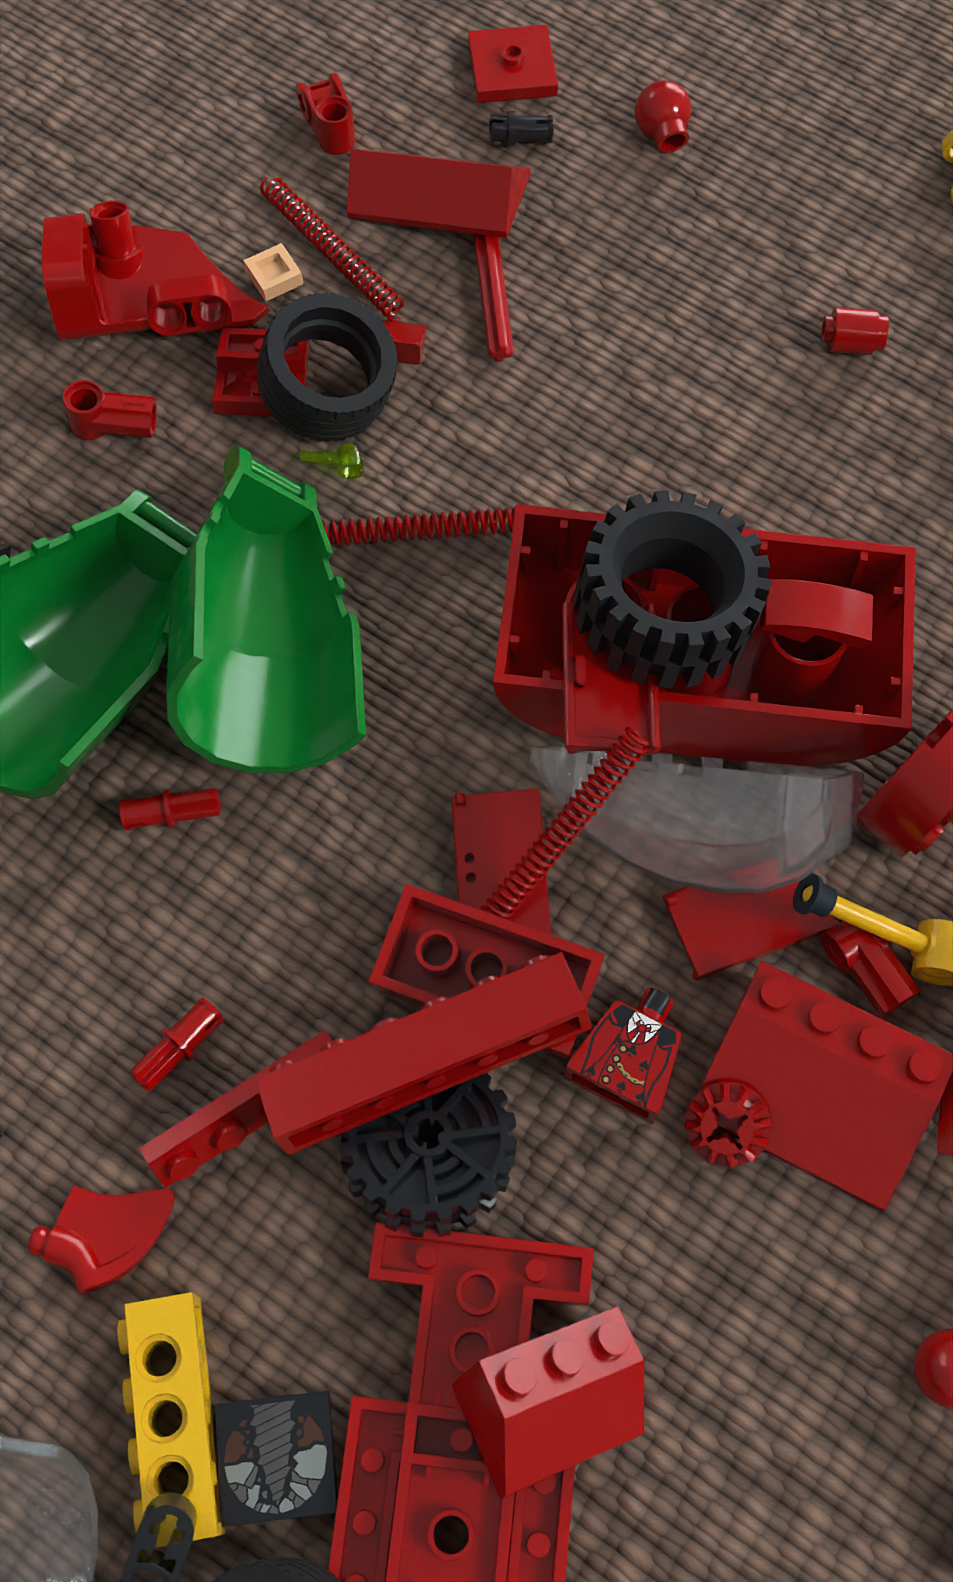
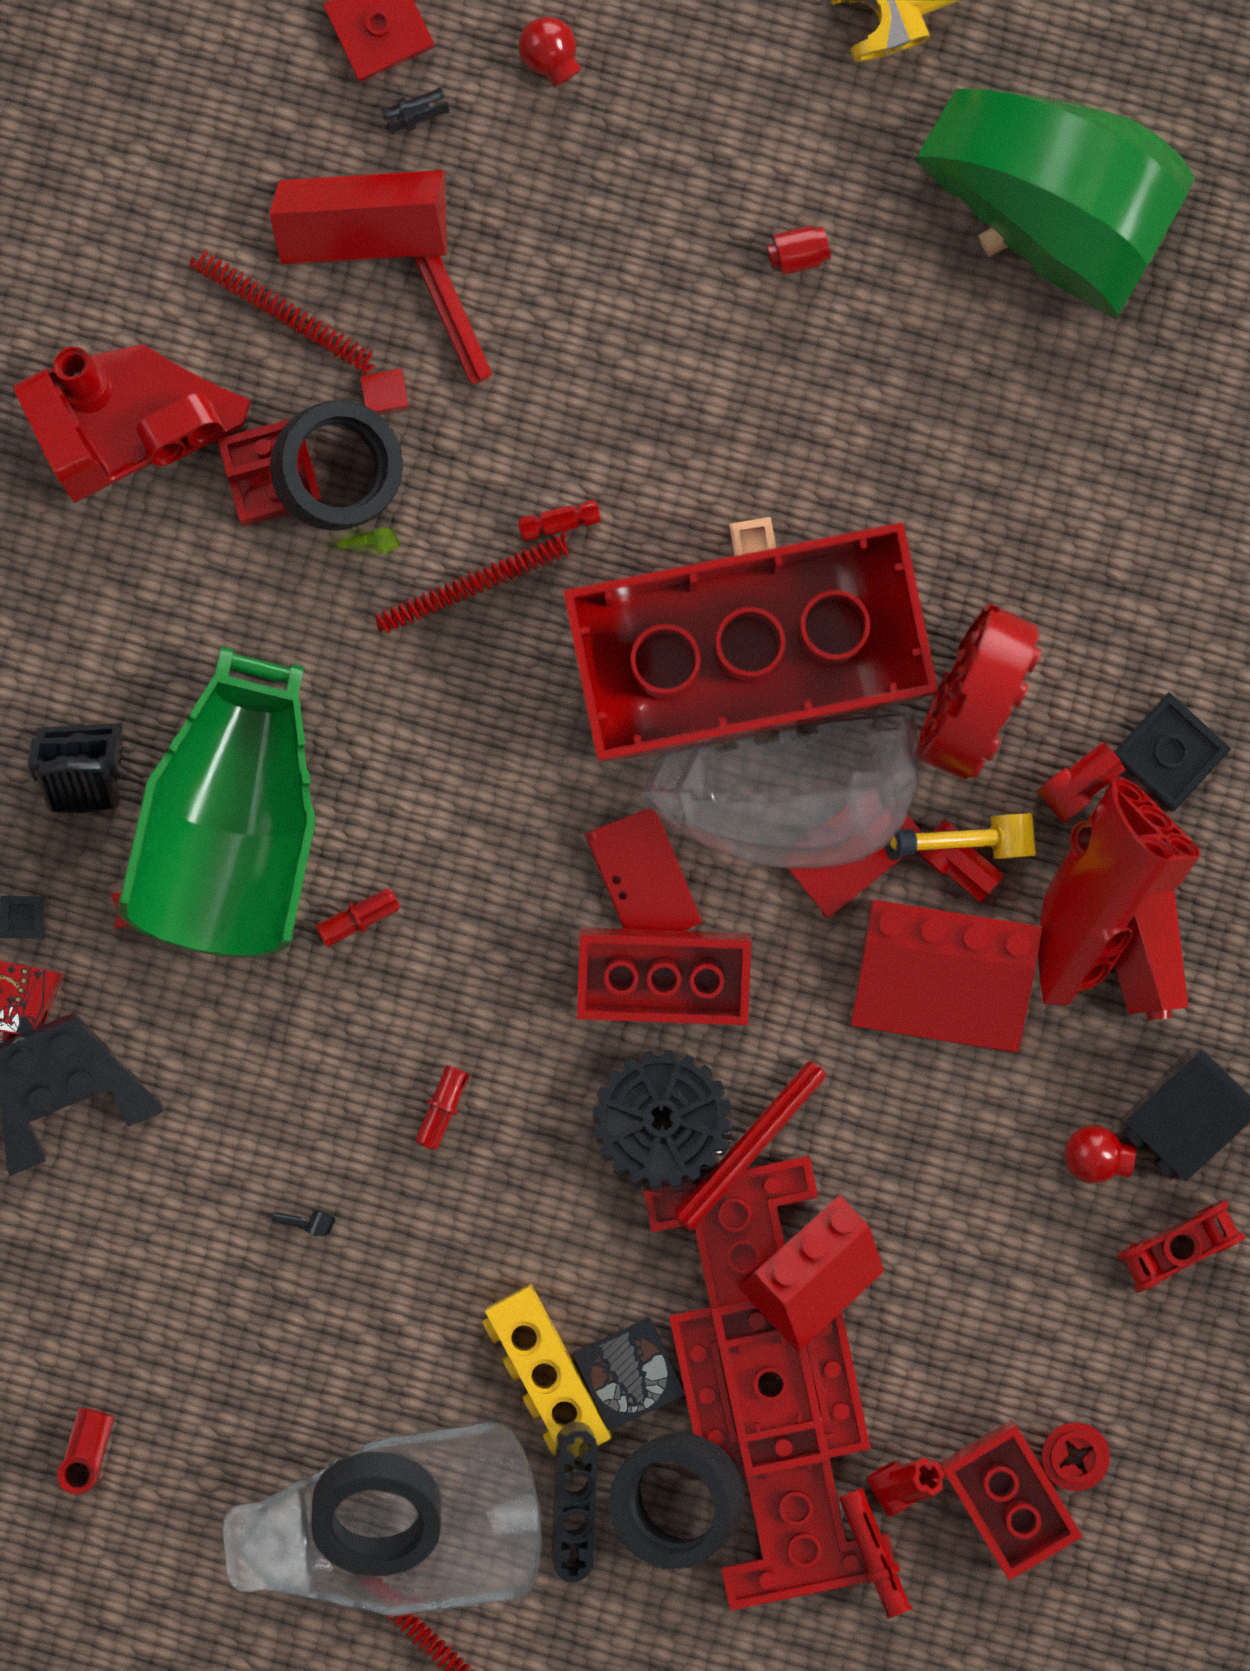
camera: 15 degrees left, 20 degrees up
(97, 412) = (160, 562): red piece -> none
(102, 1235) = (443, 1264): red arm -> none
(217, 1125) = (506, 1151): red plate -> none
(260, 633) = (381, 741): green windscreen -> none
(273, 272) = (240, 361): light nougat plate -> none
(328, 114) = (217, 150): red piece -> none
(422, 1052) = (640, 1064): red brick -> none
(521, 1211) = (750, 1145): none -> red axle
(533, 494) = (559, 520): none -> red axle
(608, 699) = (693, 727): red door -> none
(614, 759) = (682, 885): red piece -> none
(629, 1056) = (793, 1000): red torso -> none
(680, 540) = (729, 597): black tyre -> none
(732, 1101) = (882, 1013): red gear -> none
(814, 608) = (837, 618): red slope -> none

